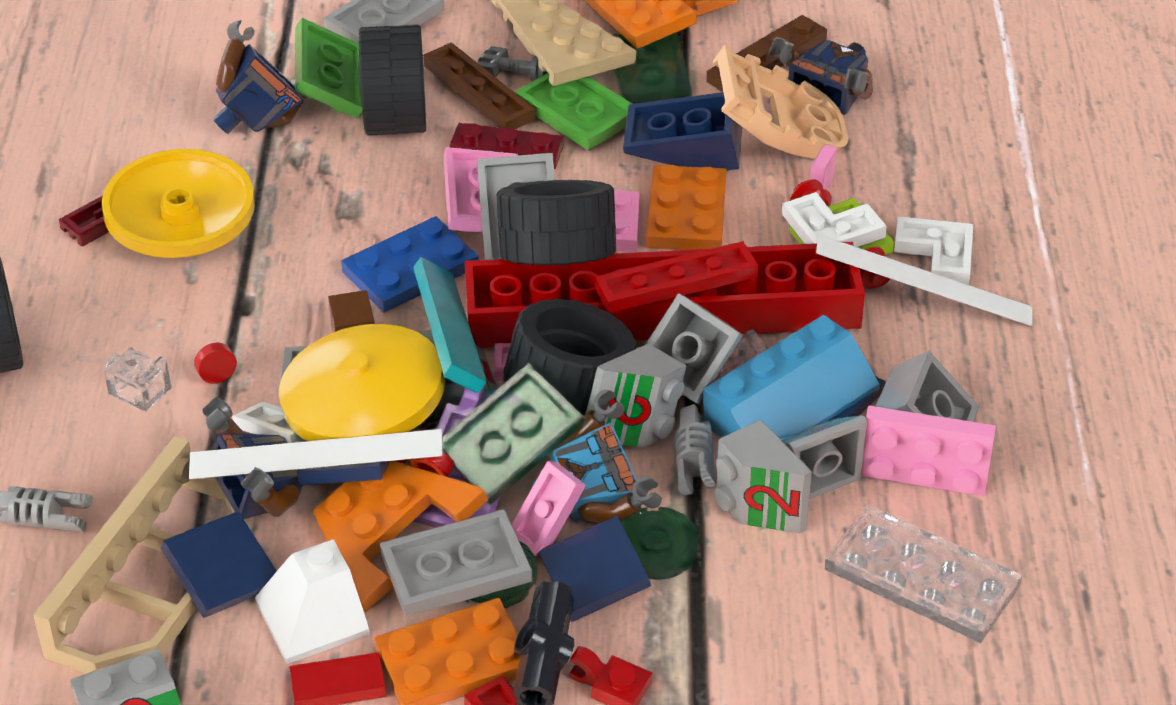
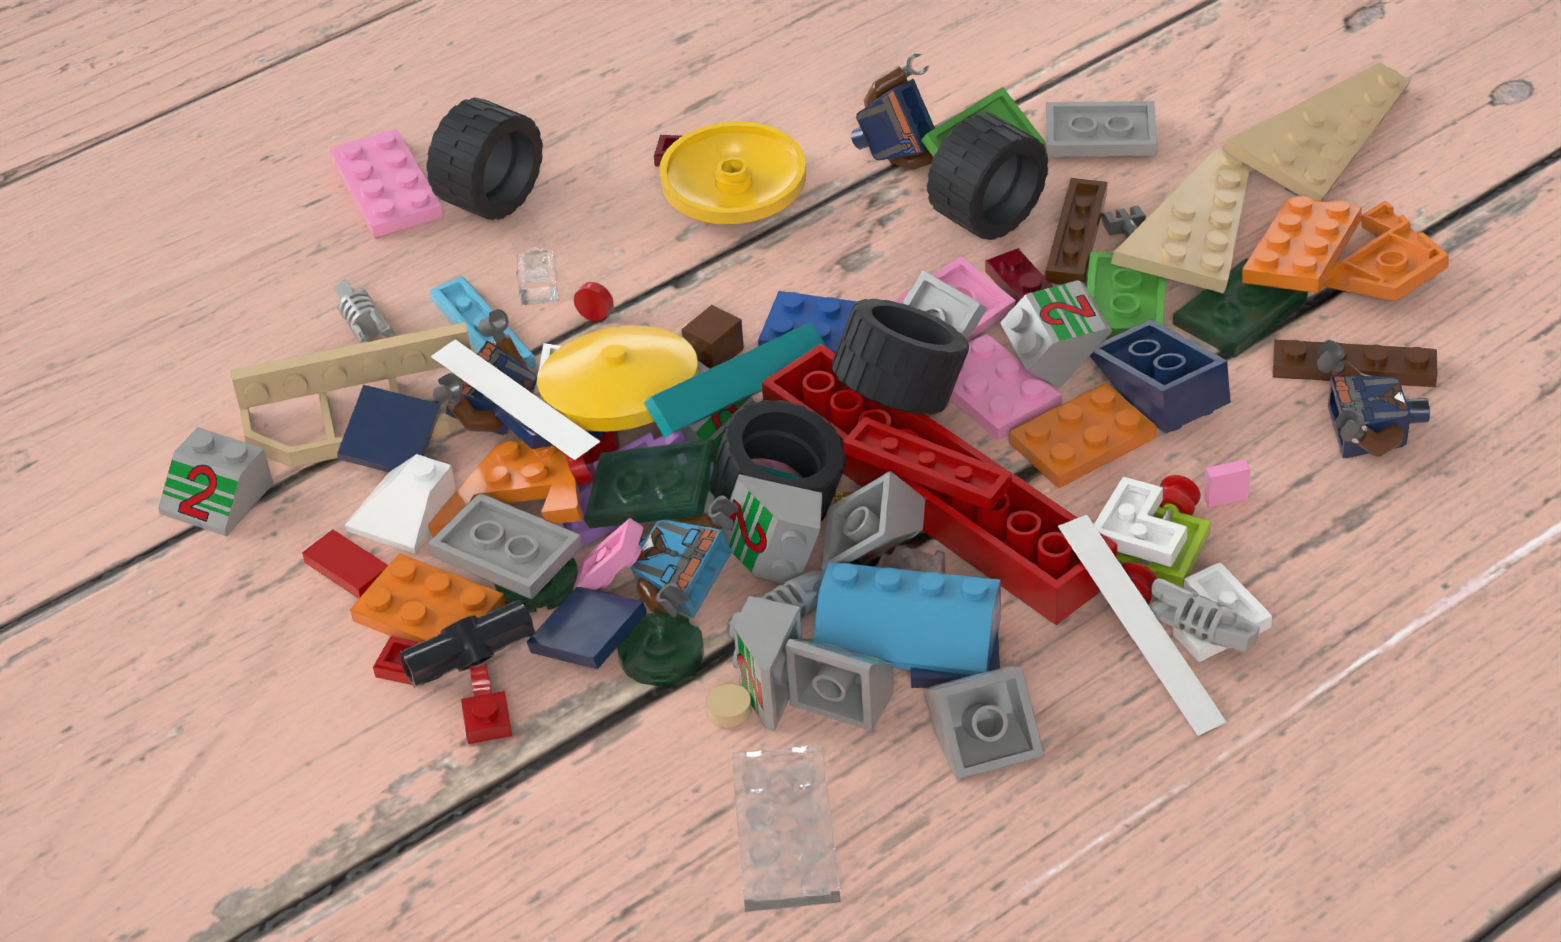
camera: 55 degrees right, 0 degrees up
(126, 443) = (464, 304): none -> medium azure tile
(591, 145) = (1056, 330): none -> light grey slope
(760, 537) = (728, 705): none -> tan tile
(801, 114) = (1288, 435): light nougat slope -> none
(927, 450) = (913, 742): bright pink plate -> none
(955, 248) = (1202, 617): none -> light grey hinge

